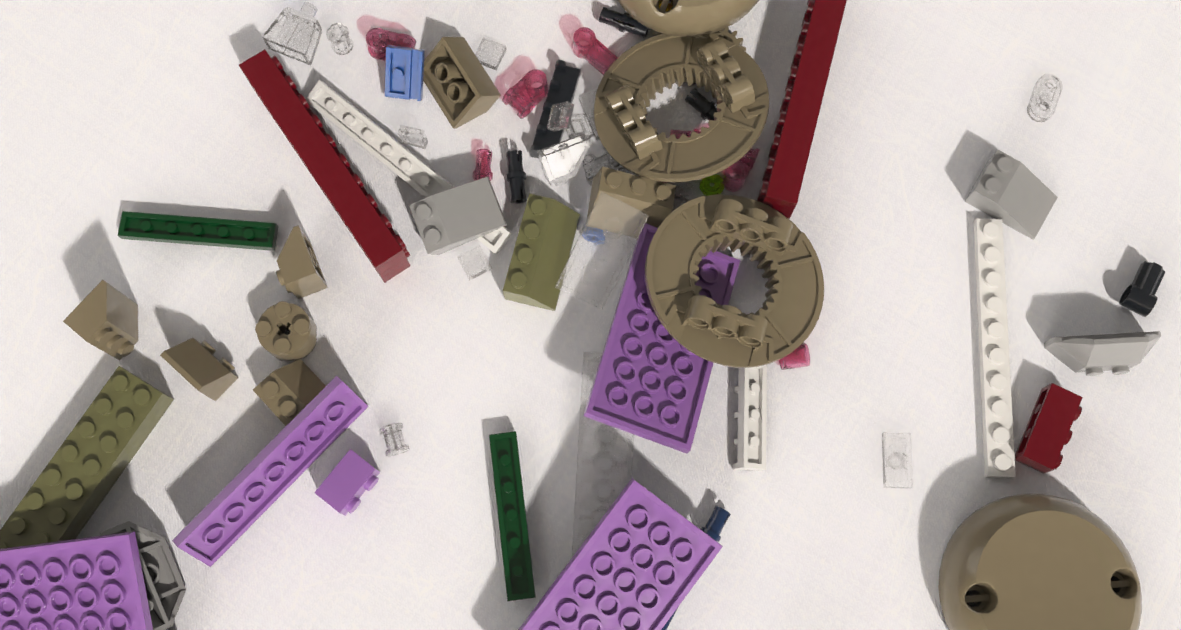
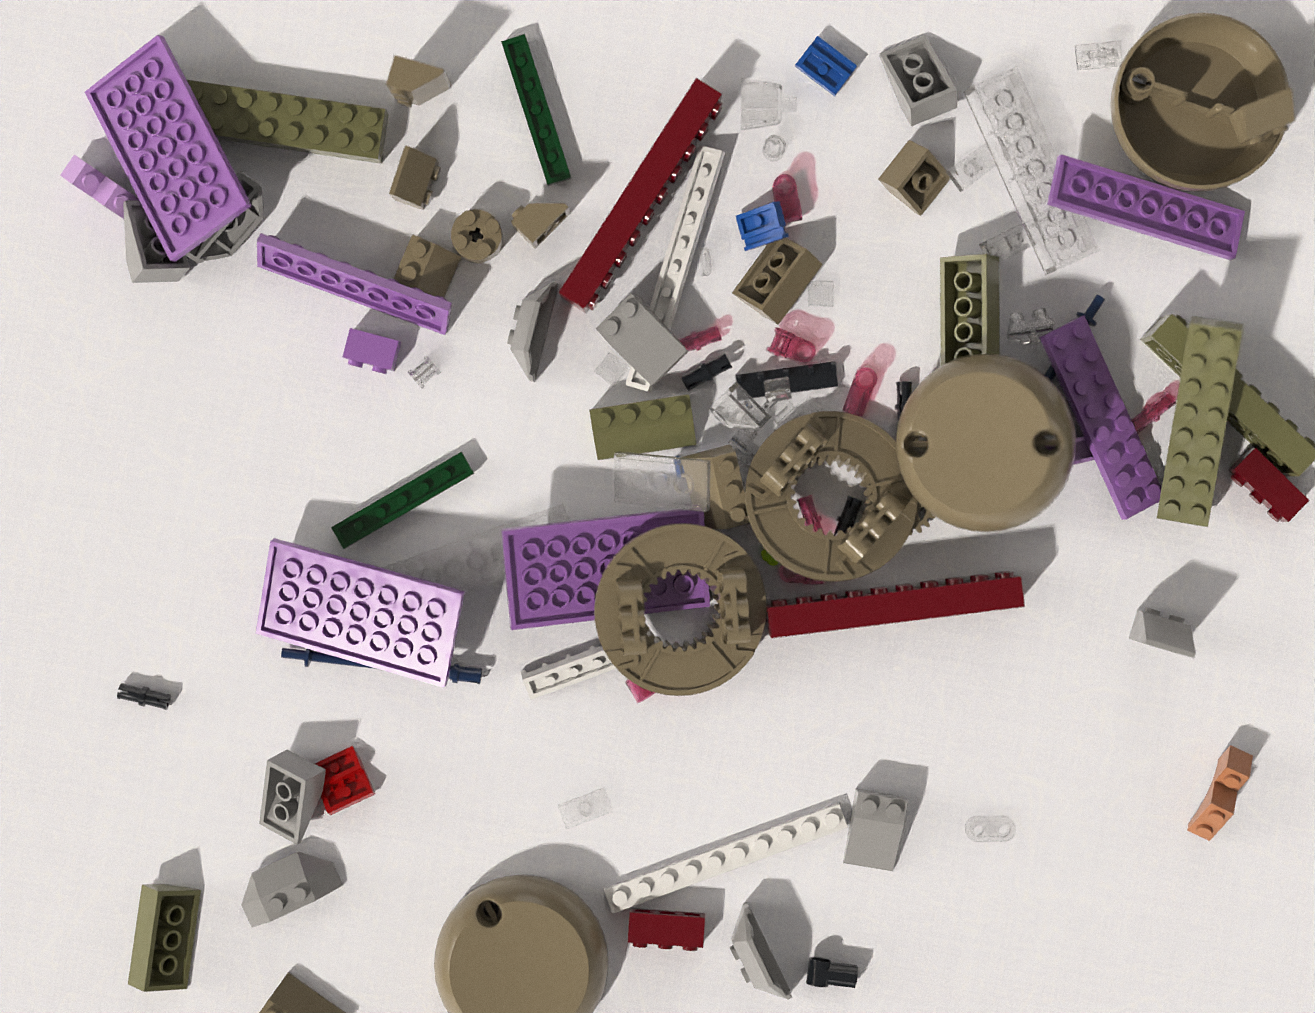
camera: 70 degrees right, 15 degrees up
(401, 318) = (532, 328): none -> light grey wedge

